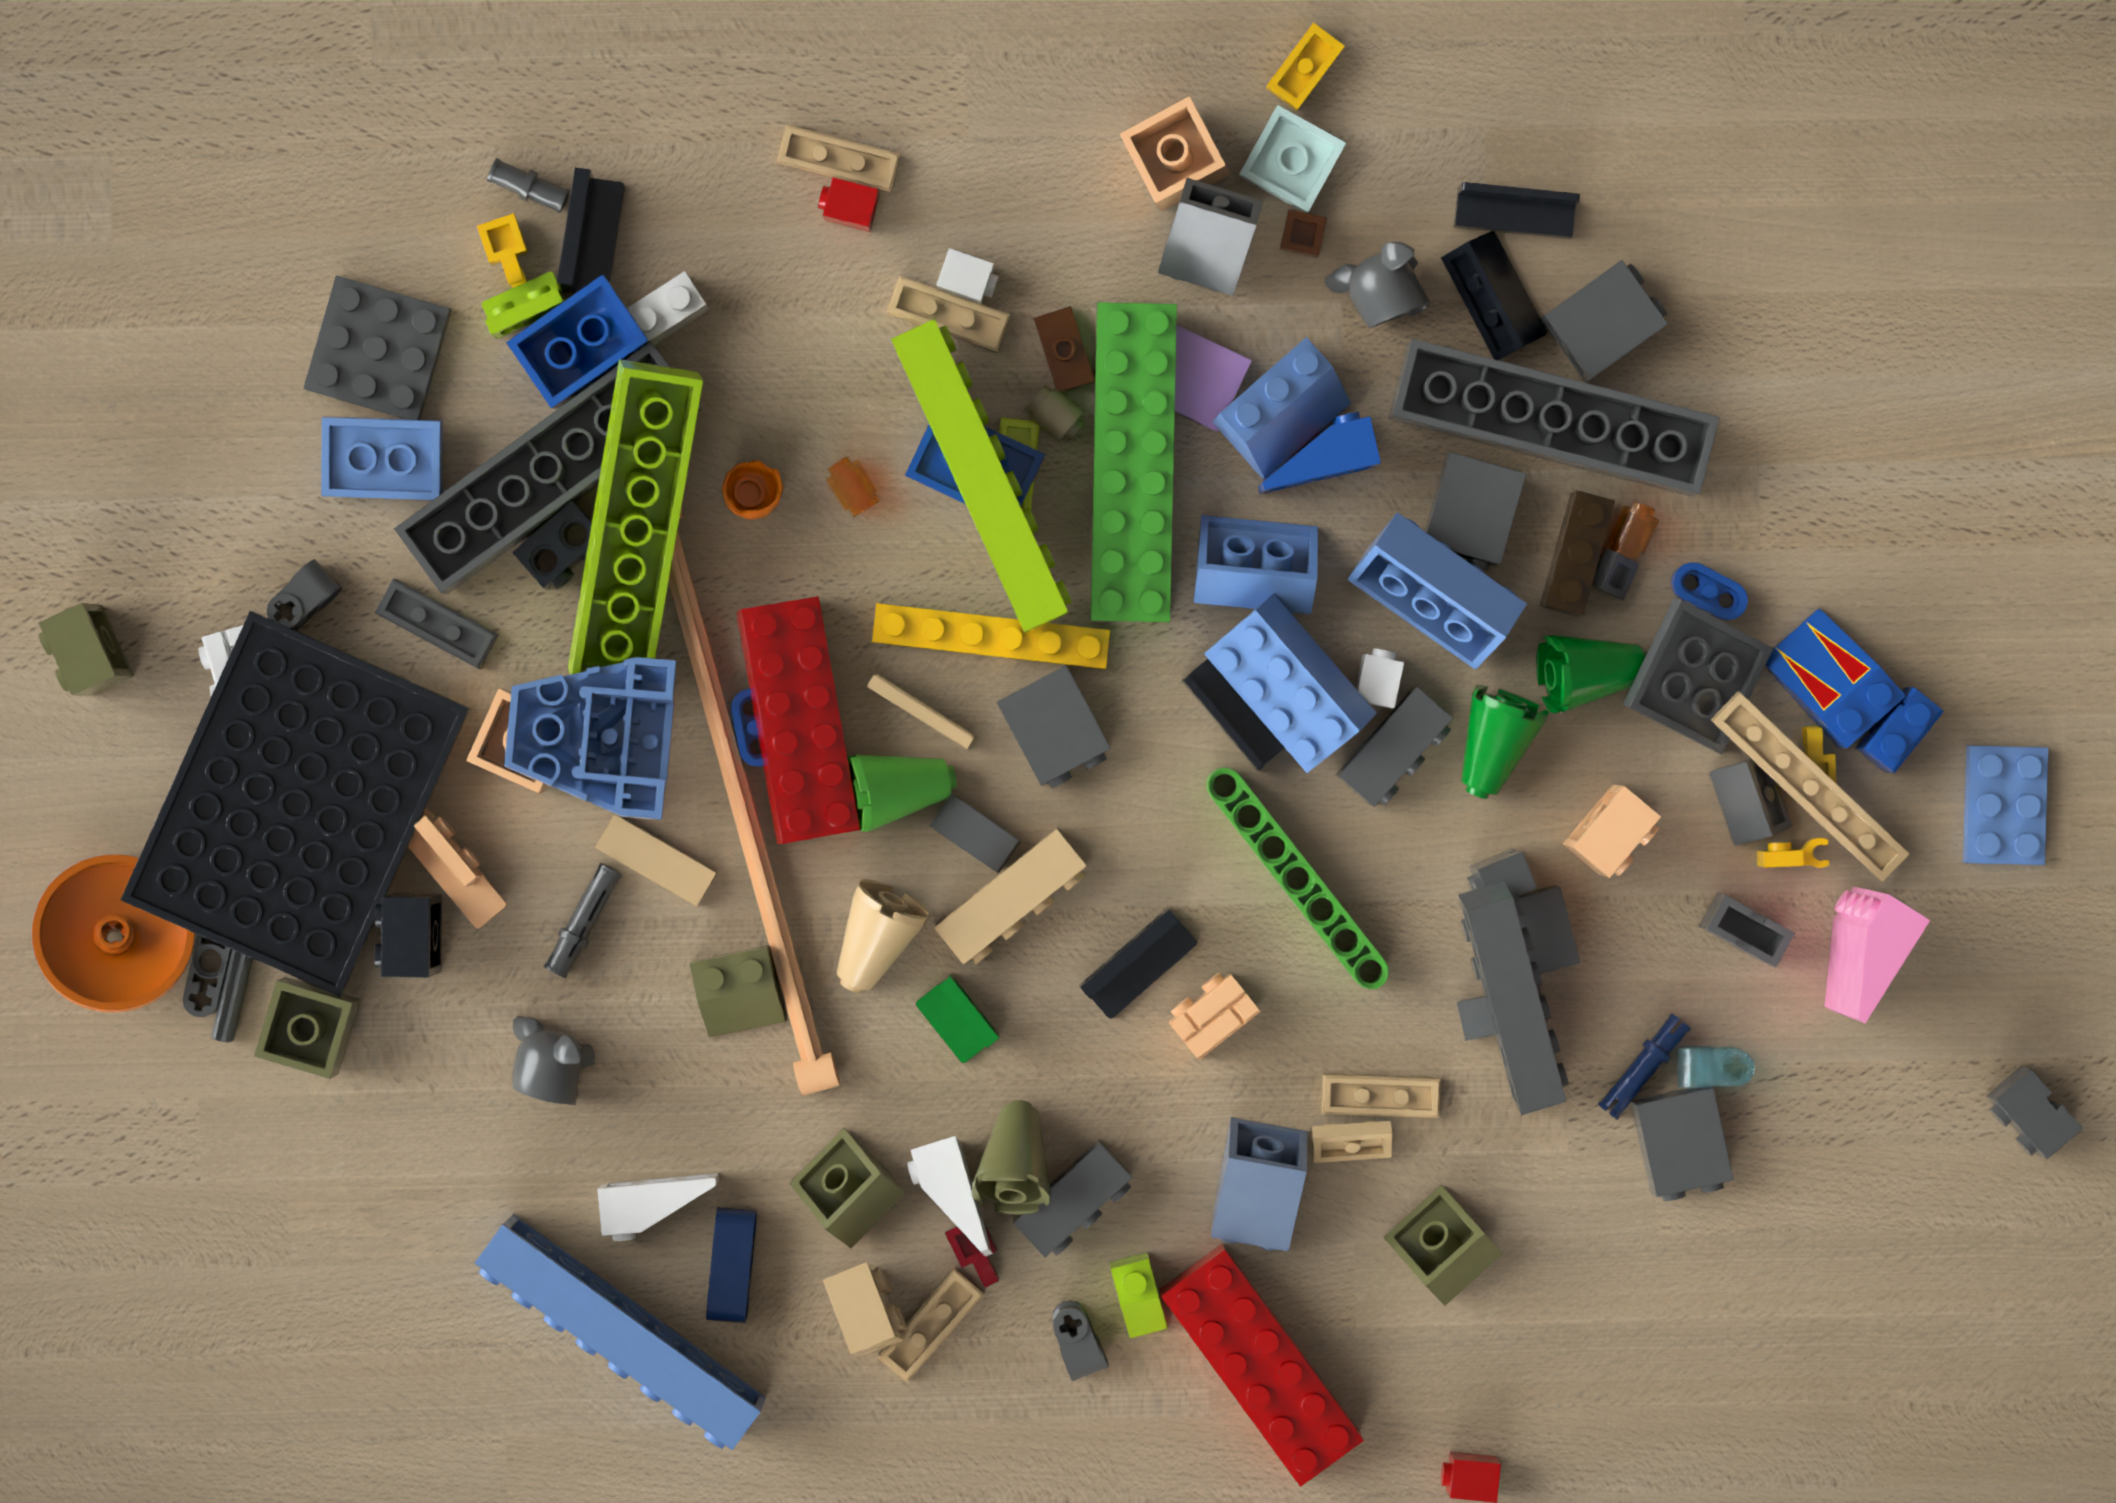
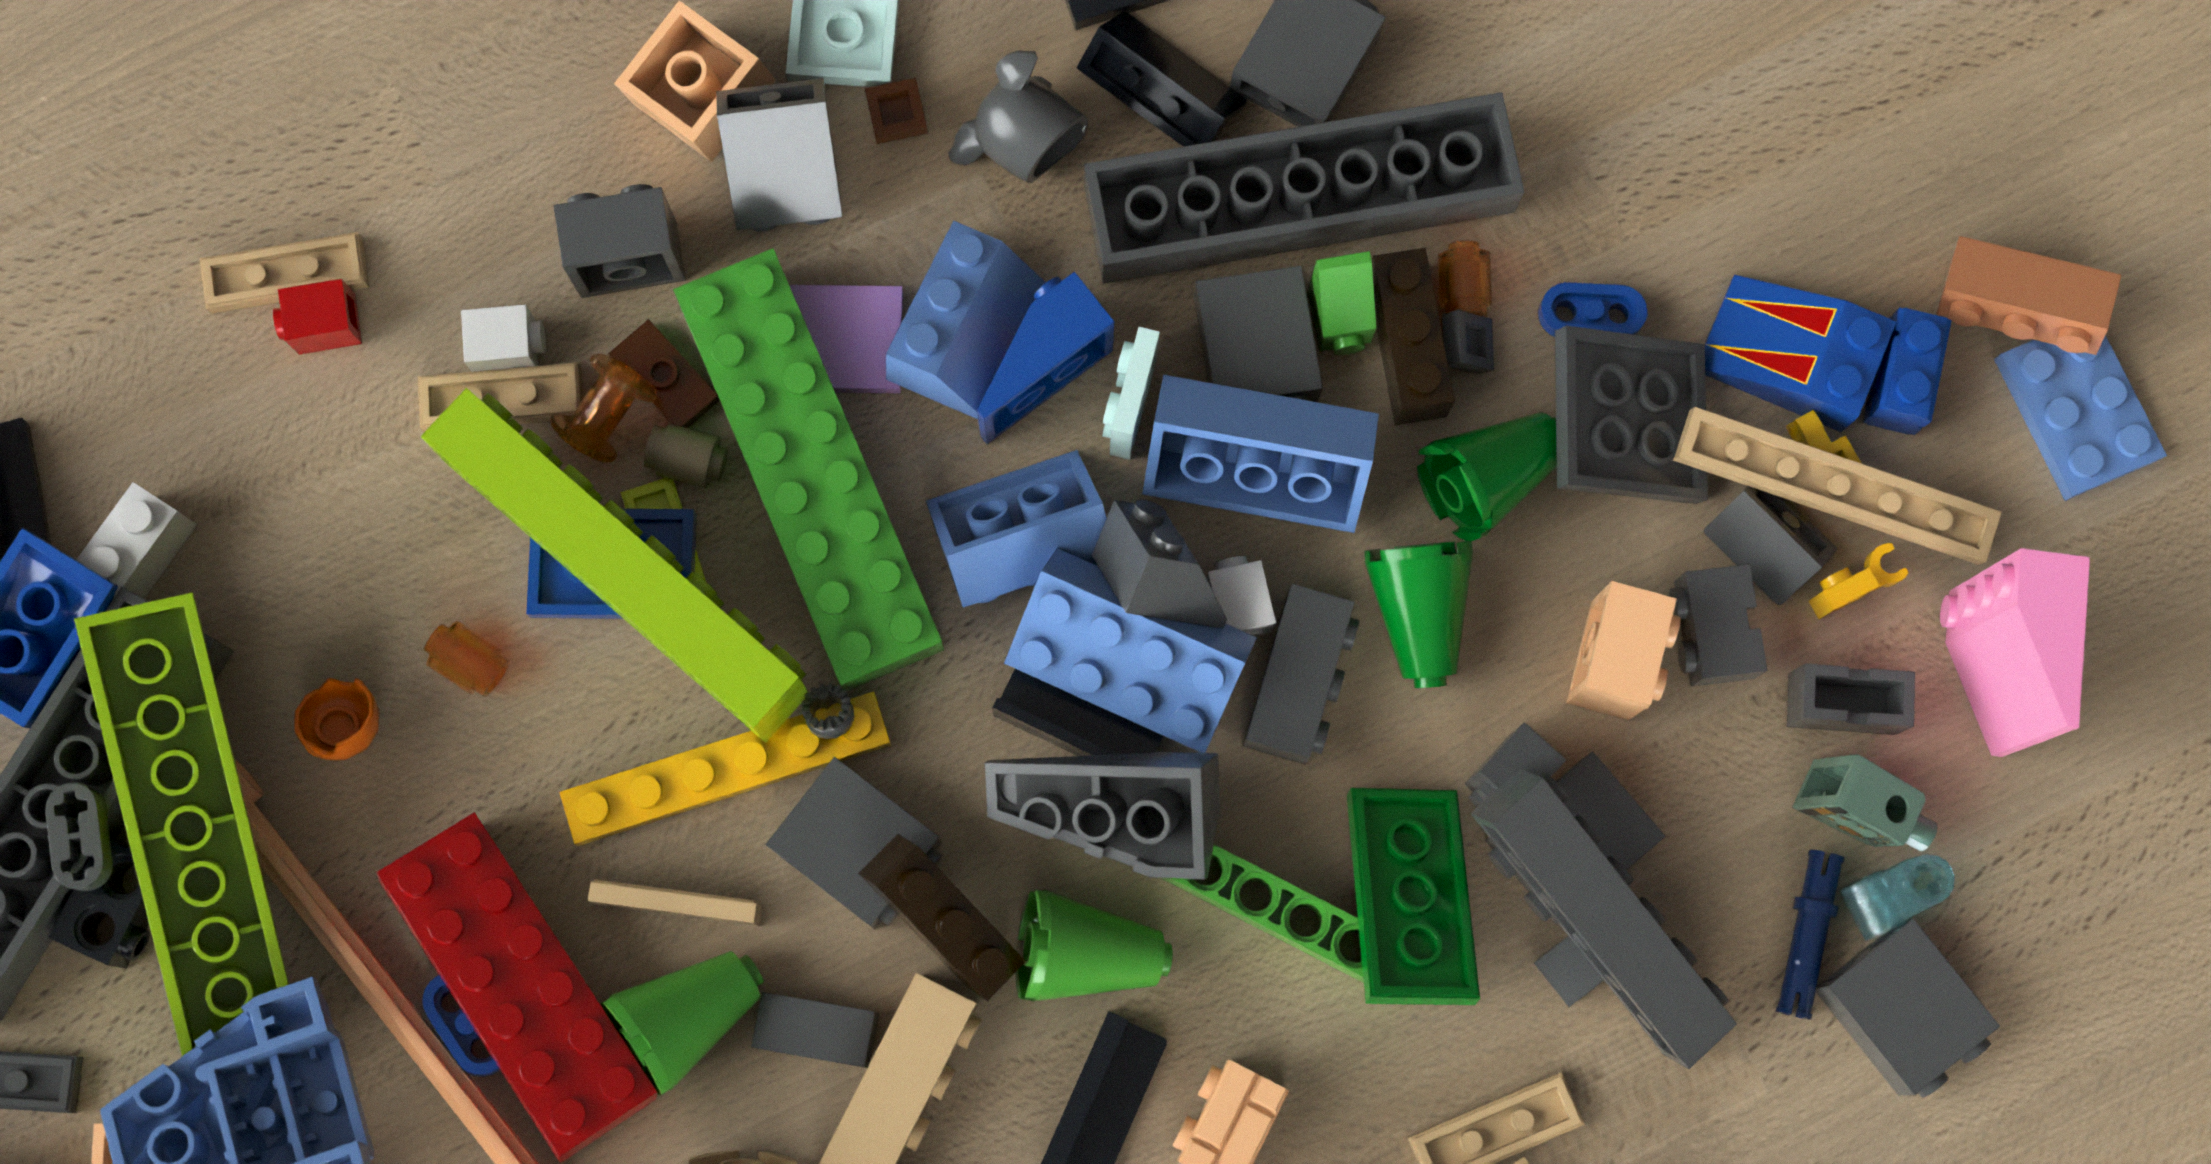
camera: 25 degrees left, 10 degrees down
(551, 498) = (65, 838): none -> dark grey beam
(1015, 358) = (603, 408): none -> clear orange hose
(1075, 246) = (619, 241): none -> dark grey brick
(1075, 621) = (824, 697): none -> dark grey bush
(1089, 802) = (942, 917): none -> dark brown brick
(1170, 863) = (1085, 950): none -> bright green cone
(1242, 787) = (1129, 807): none -> dark grey wedge
(1329, 637) = (1153, 566): none -> dark grey slope
(1380, 497) = (1134, 377): none -> light aqua plate
(1398, 925) = (1412, 897): none -> green tile
(1541, 513) = (1343, 302): none -> bright green slope
(1684, 840) = (1716, 626): none -> dark grey brick
(1721, 1001) = (1865, 803): none -> sand green torso
(2005, 717) = (2028, 296): none -> nougat brick

